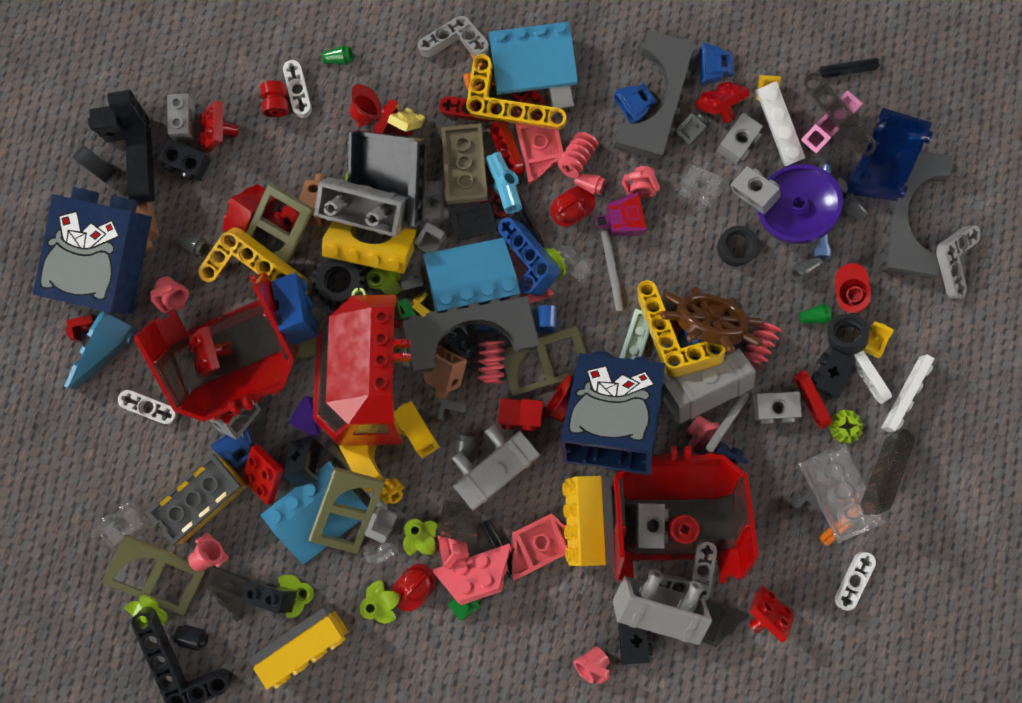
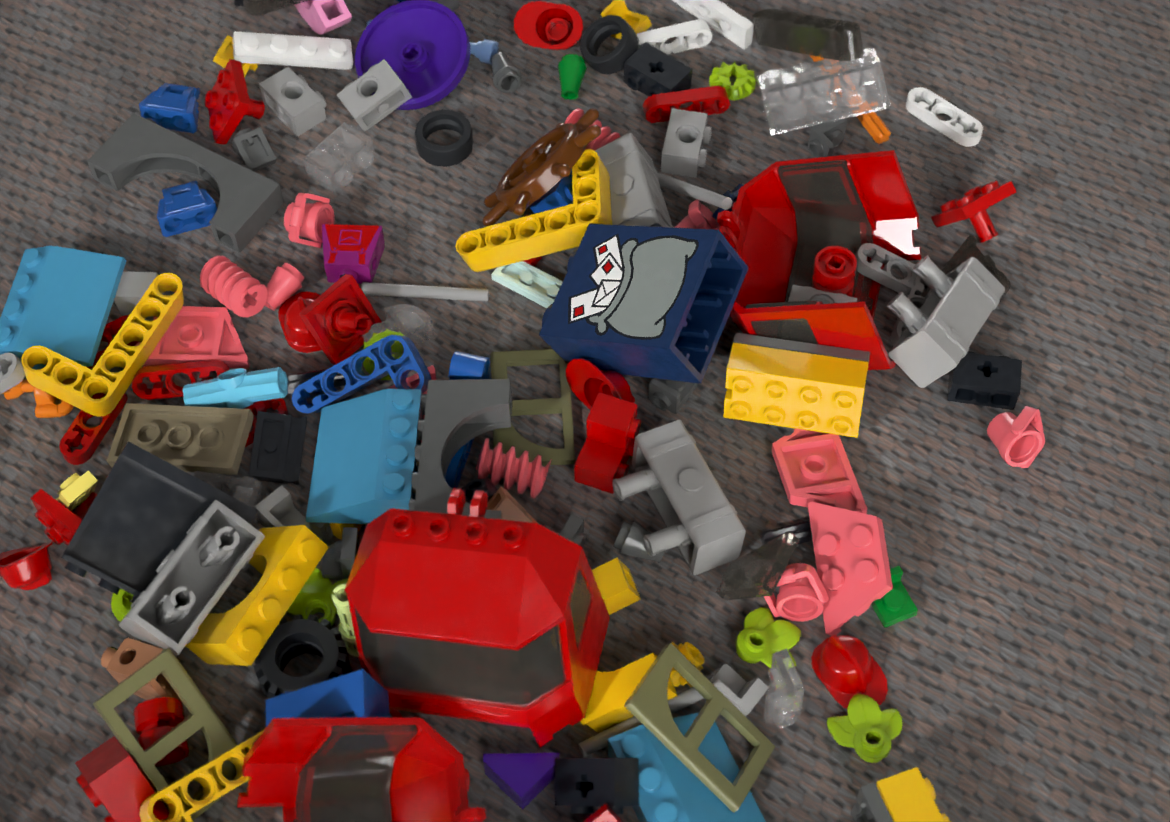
camera: 75 degrees left, 25 degrees down
(568, 228) = (340, 319): none -> red plate

